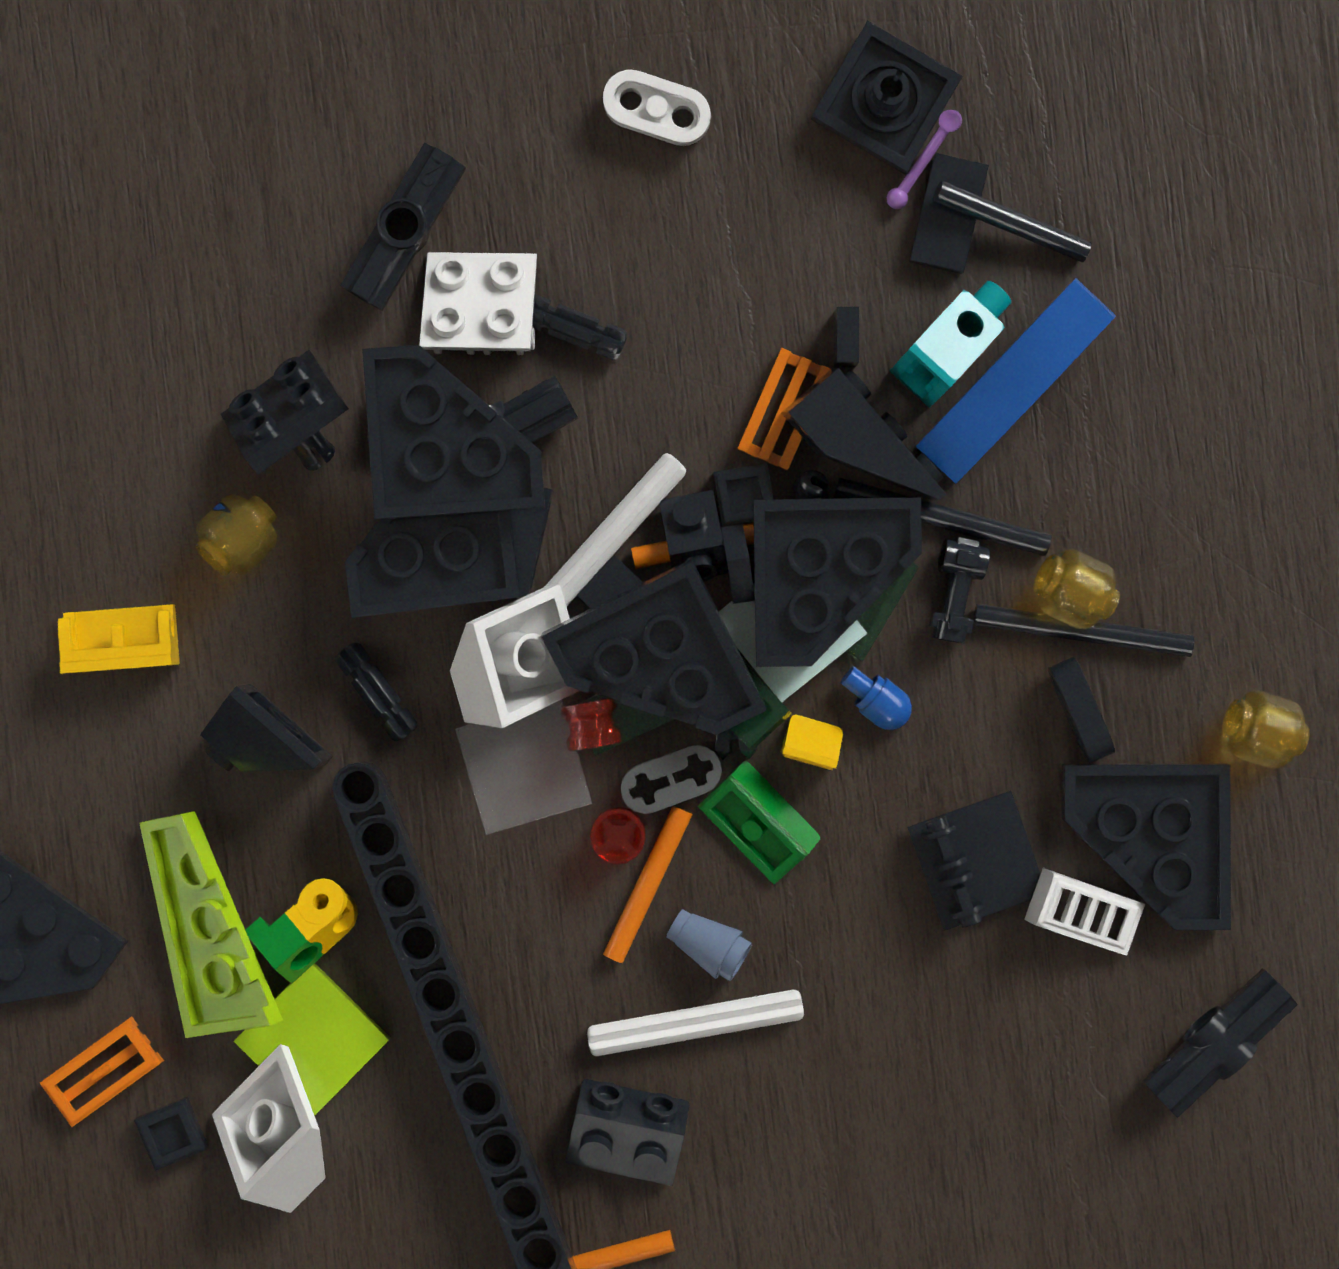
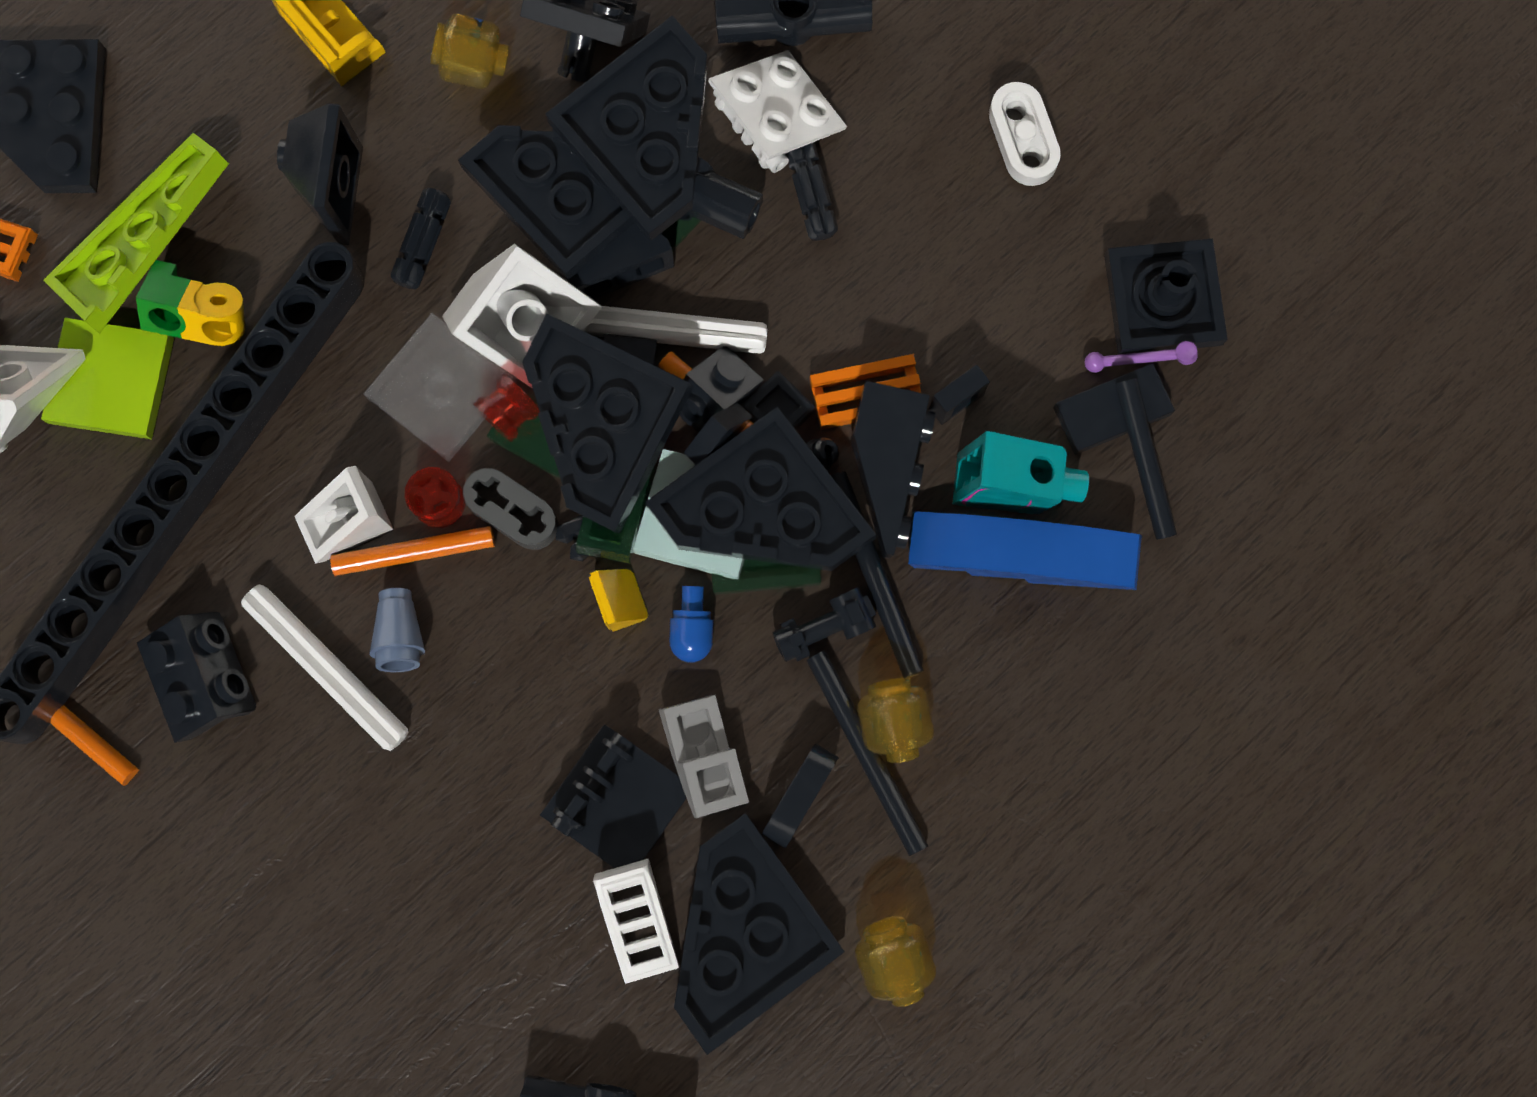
camera: 55 degrees right, 10 degrees down
(579, 924) = (342, 516): none -> white slope
(759, 822) = (526, 604): green slope -> none
(992, 765) = (703, 757): none -> light grey slope

